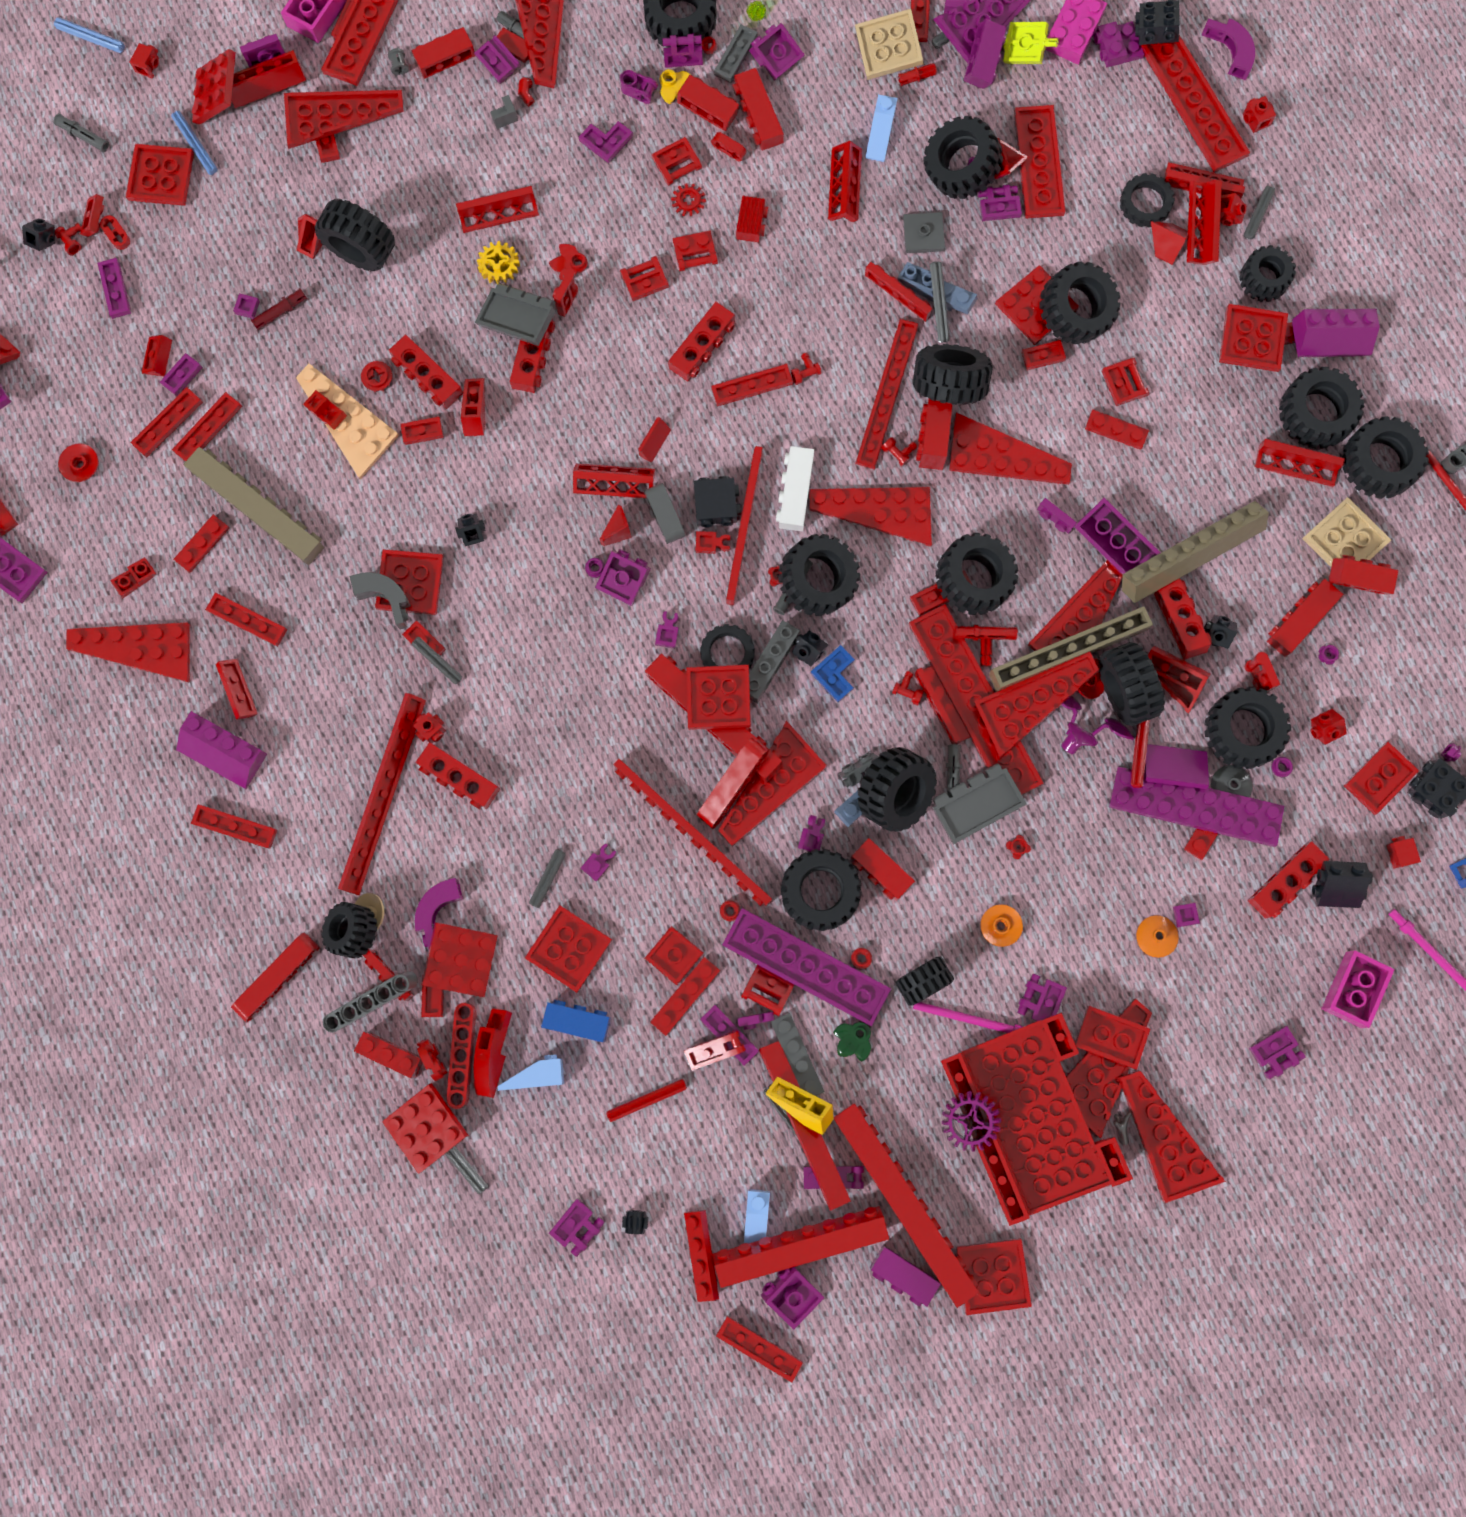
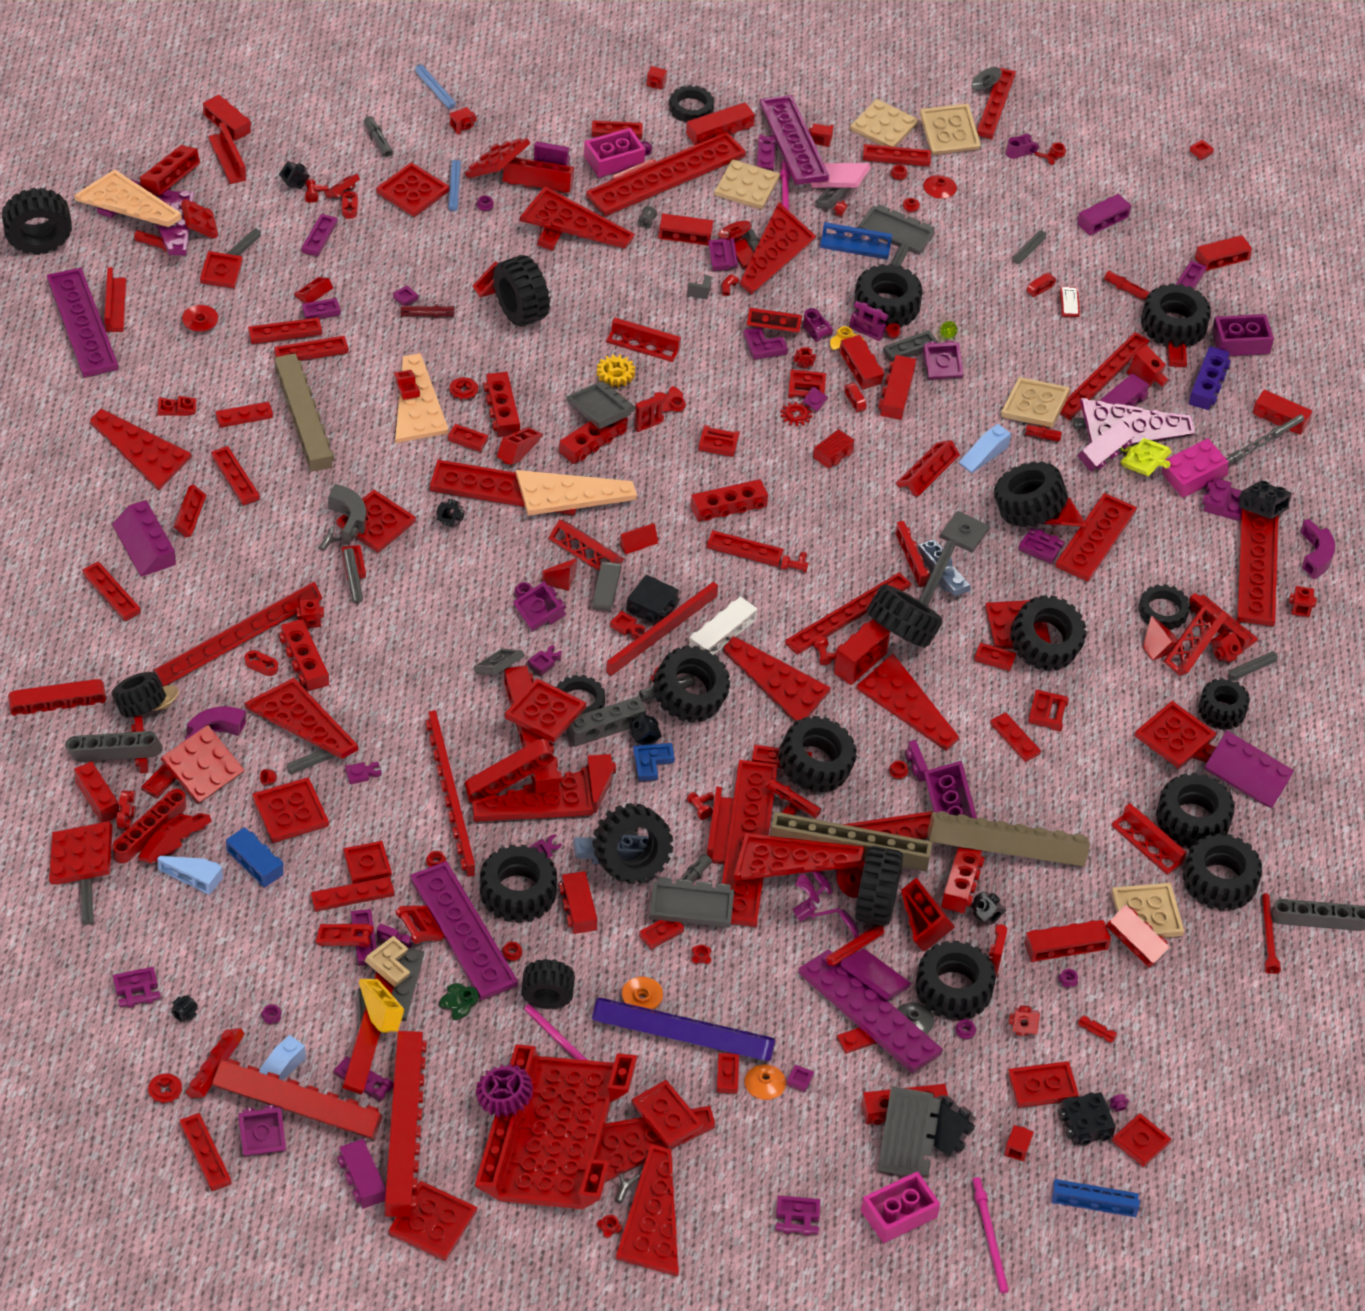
camera: 25 degrees right, 30 degrees down
(51, 352) = (246, 242): none -> dark grey axle
(54, 392) = (221, 269): none -> red plate
(238, 140) = (485, 203): none -> magenta plate
(382, 630) = (328, 539): none -> flat silver bar
(425, 814) = (260, 664): none -> red beam
(488, 23) = (734, 230): none -> red dish
(496, 463) = (479, 483): none -> red plate
(499, 843) = (302, 715): none -> red wing
(526, 926) = (269, 775): none -> red hinge
(550, 438) = (564, 492): none -> light nougat wing
(599, 107) = (774, 320): none -> red brick
(633, 664) = (498, 661): none -> dark grey plate
(646, 1100) = (263, 941): red axle -> none
(656, 136) = (804, 357): none -> red gear
(670, 1317) = (164, 1080): none -> red gear
(694, 245) = (775, 442): red plate -> none
(696, 173) = (815, 399): none -> magenta plate
(710, 1176) = (271, 1009): none -> magenta plate
(768, 1054) = (386, 963): none -> tan plate
(804, 721) = (600, 777): none -> red slope
(970, 850) = (660, 932): none -> red plate
(1045, 535) = (898, 769): none -> red plate
(1048, 1002) = (645, 1064): magenta plate -> none
(1061, 938) = (683, 1029): none -> dark purple beam
(1125, 953) = (727, 1073): none -> red plate
(1142, 1172) = (609, 1220): none -> red plate
(1320, 915) = (906, 1132): none -> dark grey hinge
(1385, 689) = (1097, 1029): none -> red axle

